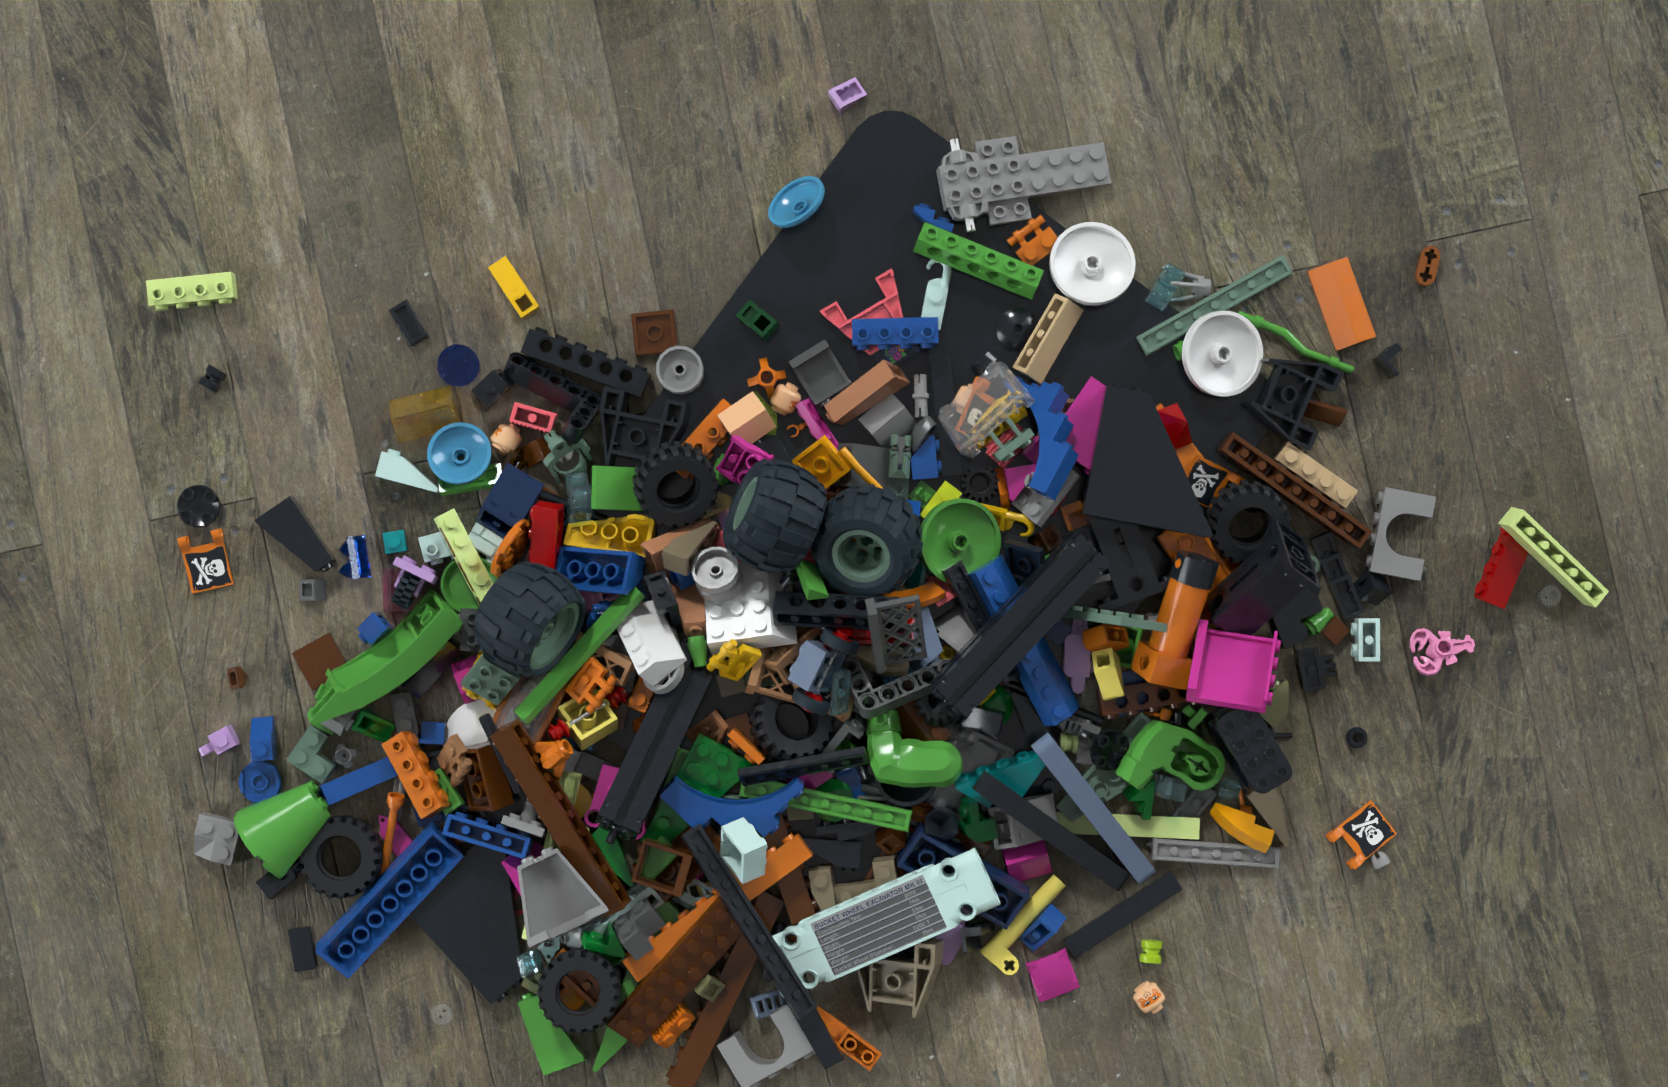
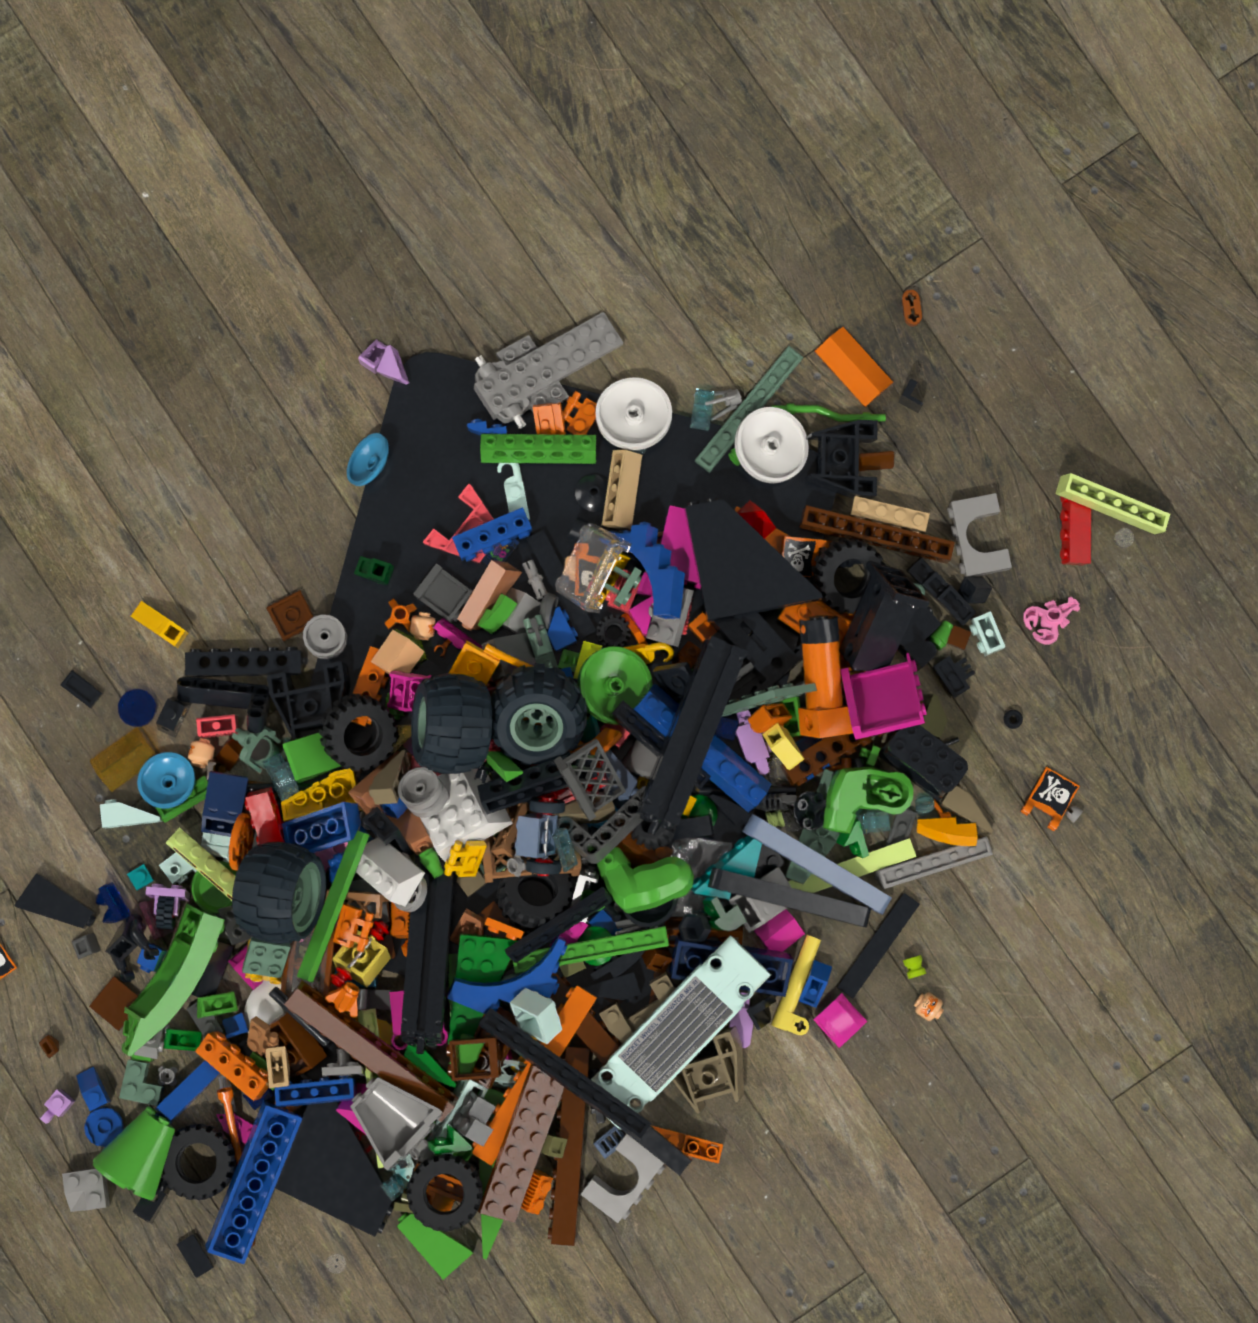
camera: 25 degrees left, 5 degrees down
(357, 601) = (125, 940): none -> black torso
(421, 704) = (216, 1005): none -> bright green slope
(459, 796) = (278, 1067): none -> tan slope
(783, 688) = (516, 865): none -> light grey plate
(860, 113) = (392, 366): none -> lavender slope
(863, 421) = (494, 618): none -> bright green slope
(1001, 234) = (549, 419): none -> orange plate

